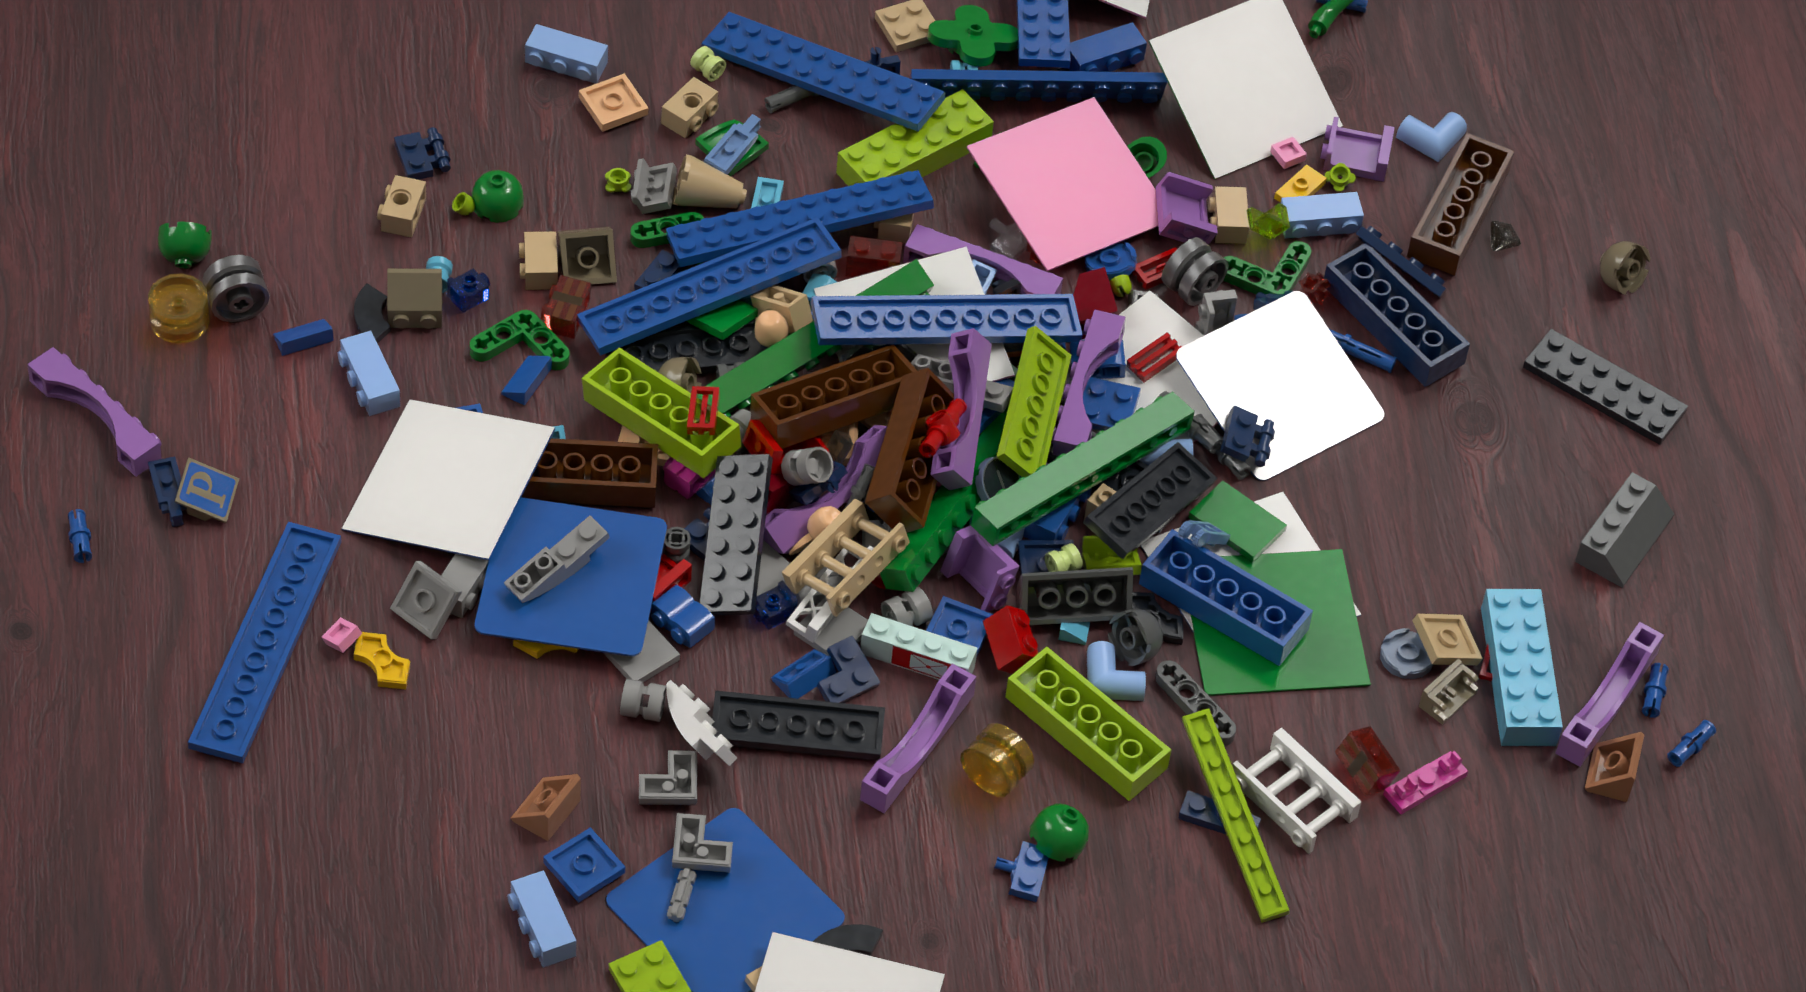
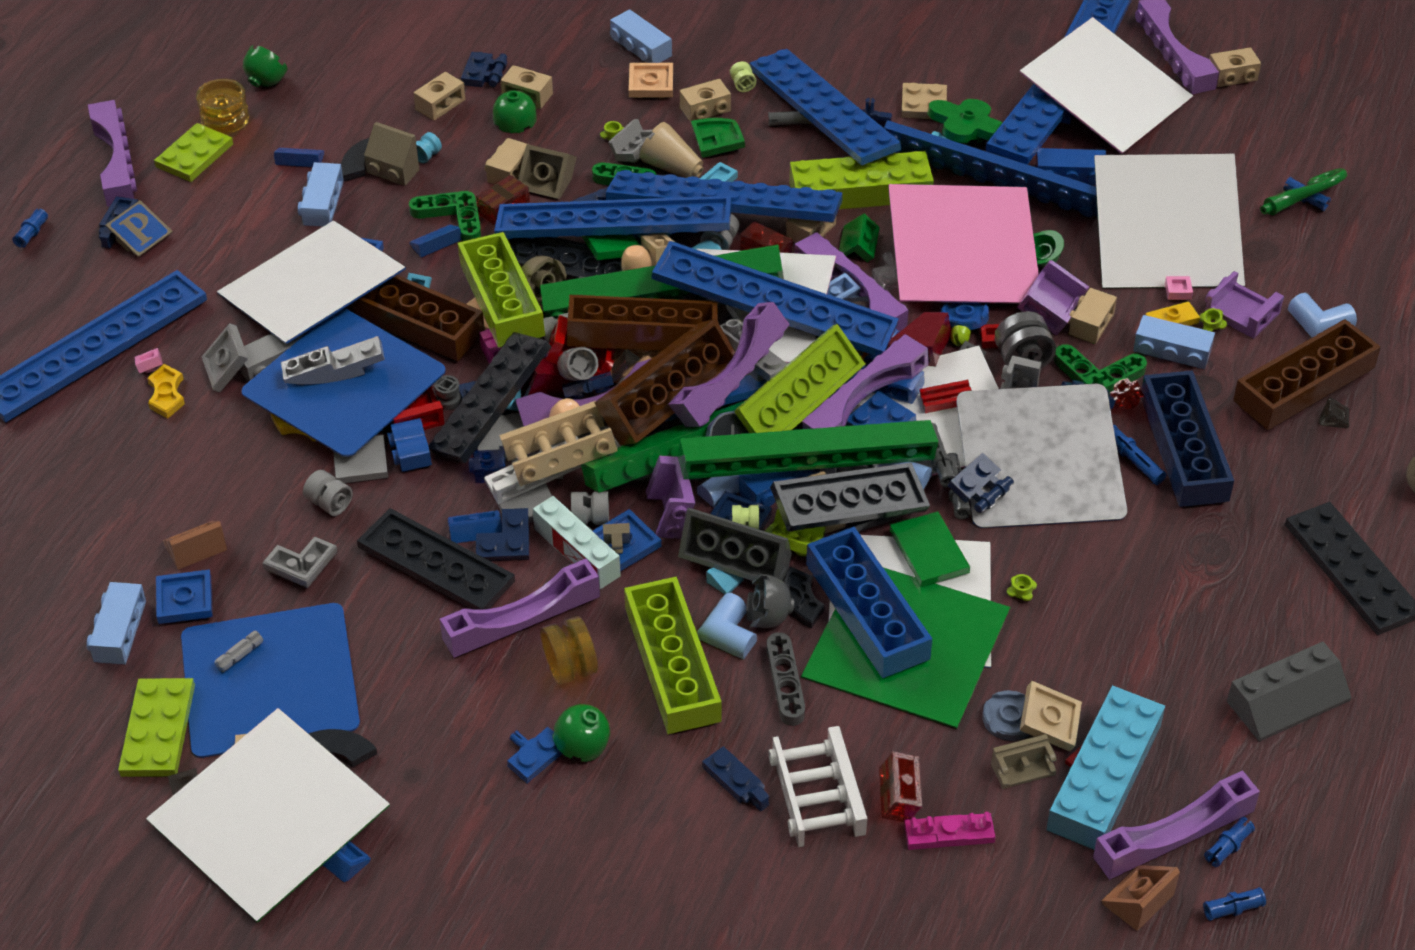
camera: 35 degrees right, 5 degrees down
(181, 375) = (193, 152): none -> lime plate
(236, 288) = (269, 104): flat silver wheel -> none
(463, 204) = (485, 110): lime hinge -> none
(468, 289) = (441, 165): clear blue brick -> none
(488, 155) = (532, 83): none -> tan brick
(696, 724) = (349, 523): white slope -> none
(696, 853) = (274, 619): light grey brick -> none
(702, 426) = (524, 292): red tile -> none
(734, 145) = (713, 132): medium blue hinge -> none
(943, 427) = (699, 370): red pin -> none
(954, 213) = (860, 236): none -> green panel
(960, 629) = (616, 535): none -> dark tan tile
(1010, 638) = (656, 558): red brick -> none
(1203, 533) = (879, 540): medium blue hinge -> none
(1235, 815) = (744, 784): lime tile -> none
(1269, 223) = (1119, 331): clear neon green panel -> none
(1344, 520) = (1022, 587): none -> lime plate
(1393, 252) = (1215, 391): dark blue wing -> none

